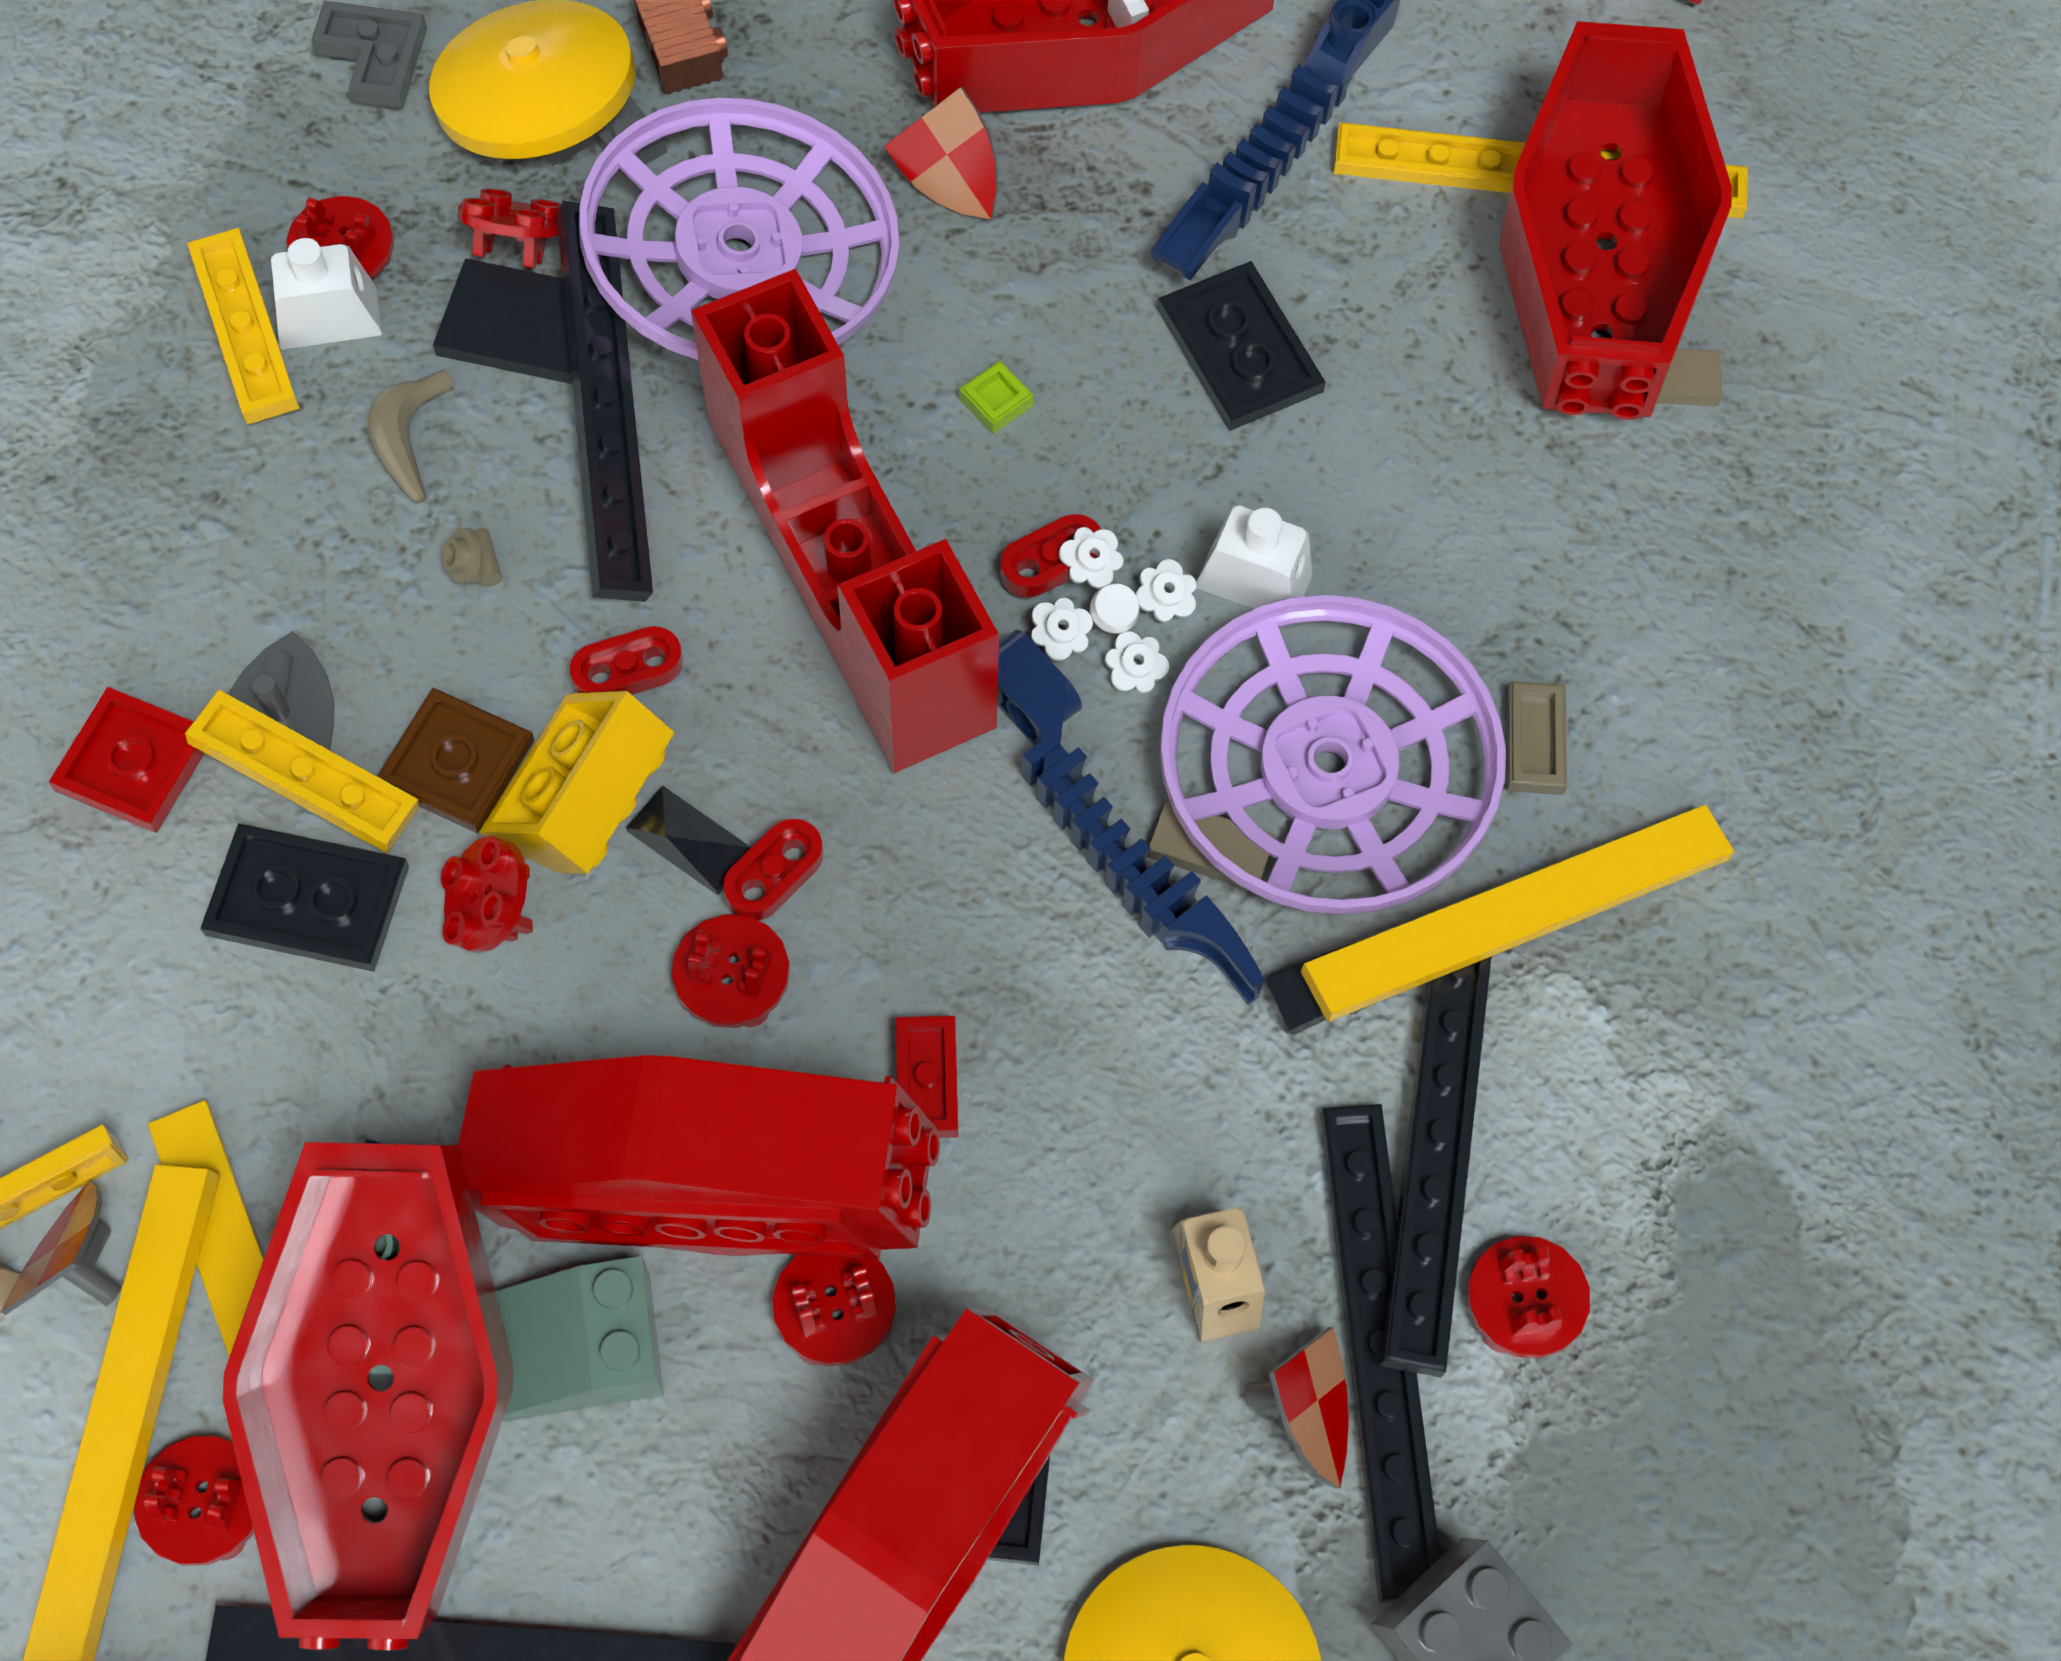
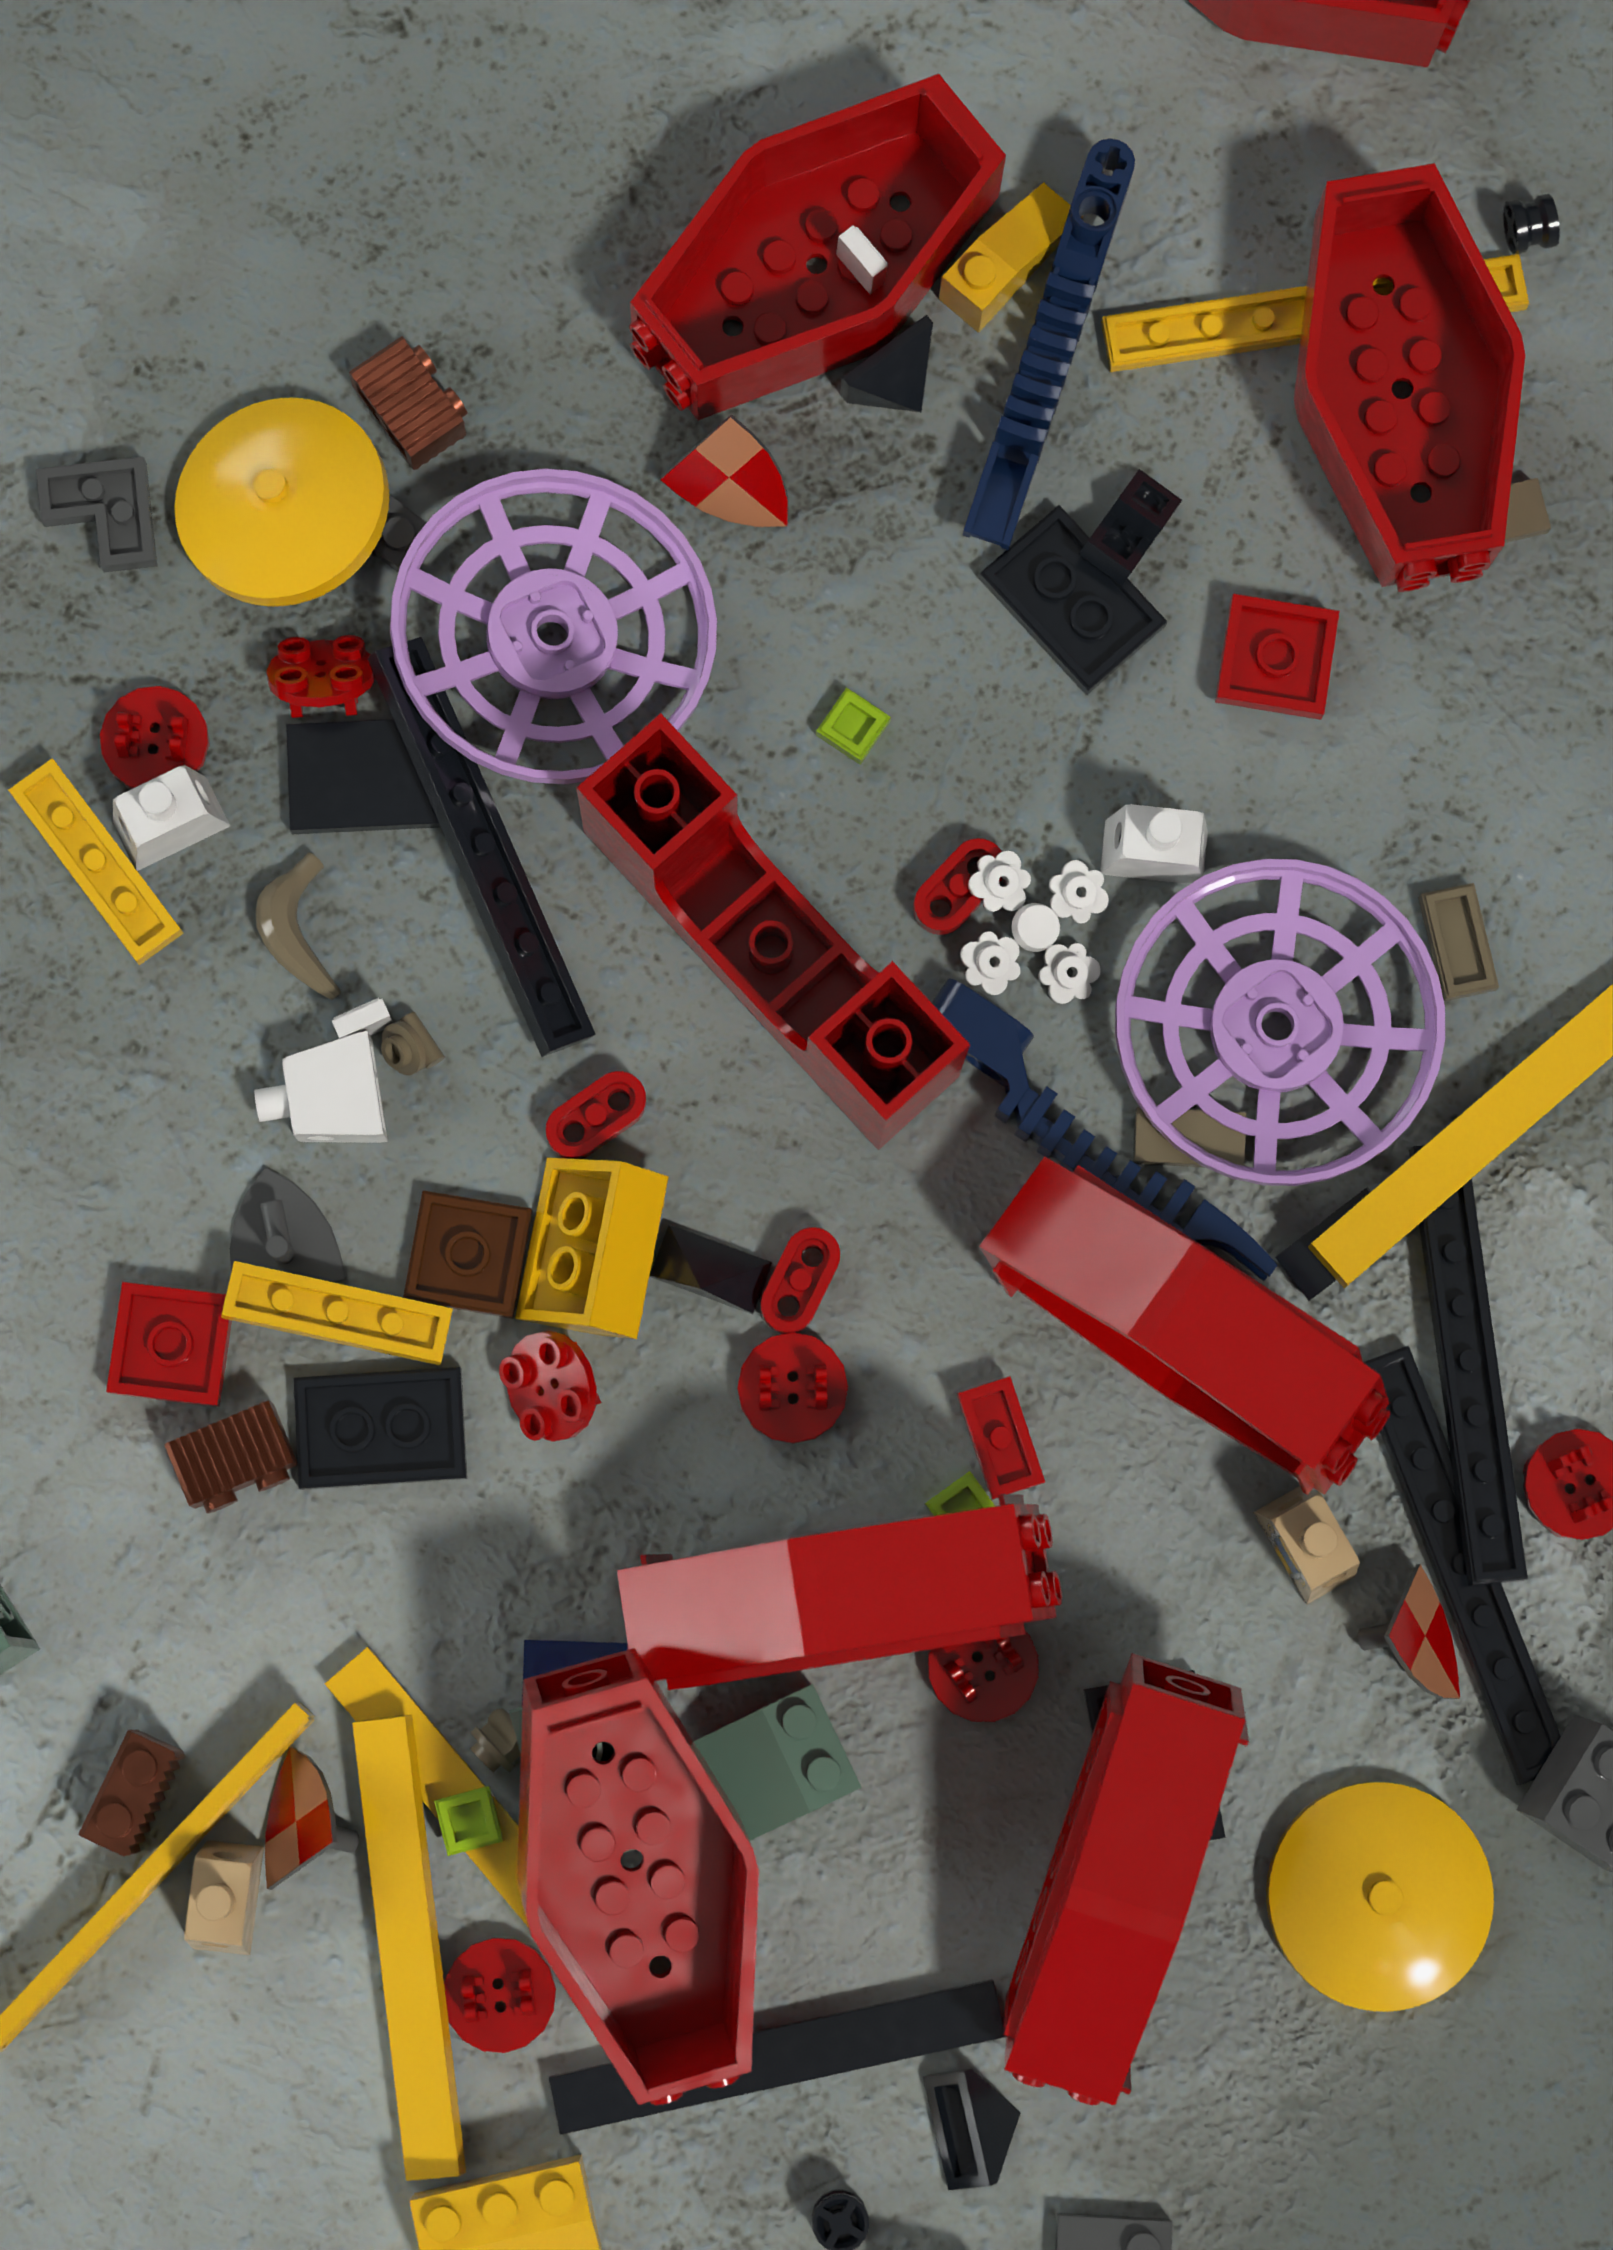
camera: 20 degrees left, 15 degrees up
(145, 876) = (232, 1456): none -> copper brick
(225, 1300) = (468, 1820): none -> lime tile
(377, 575) = (329, 1093): none -> white torso
(431, 520) = (367, 1017): none -> white tile
(1129, 115) = (893, 374): none -> black slope
(1153, 996) = (1189, 1324): none -> red container
(1253, 54) = (1004, 257): none -> yellow slope
(1313, 296) = (1130, 527): none -> black slope
(1423, 437) = (1277, 656): none -> red plate
(1765, 142) = (1531, 223): none -> black wheel

